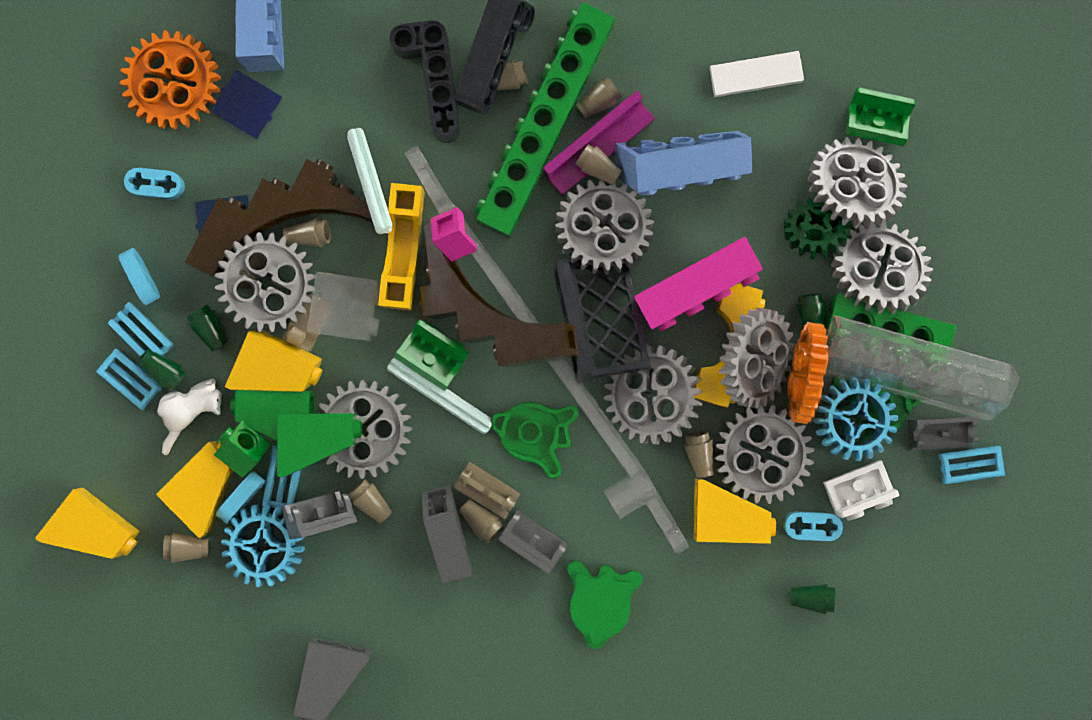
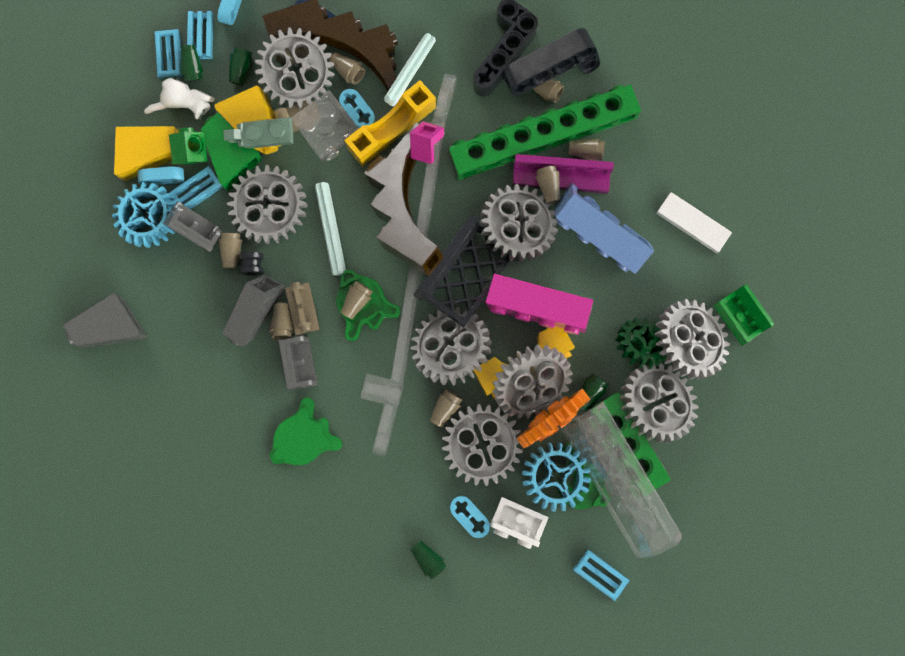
camera: 50 degrees right, 5 degrees down
(89, 527) = (62, 110): yellow slope -> none
(184, 547) = (102, 173): dark tan cone -> none
(298, 371) = (261, 133): none -> sand green hinge
(313, 437) = (231, 178): green slope -> none
(356, 256) = (361, 106): none -> medium azure beam
(402, 495) = (251, 263): none -> black wheel
(432, 354) = (348, 201): green bracket -> none
(529, 436) = (356, 299): none -> dark tan cone
(728, 518) = (425, 462): yellow slope -> none
(943, 433) = (601, 538): dark grey hinge -> none

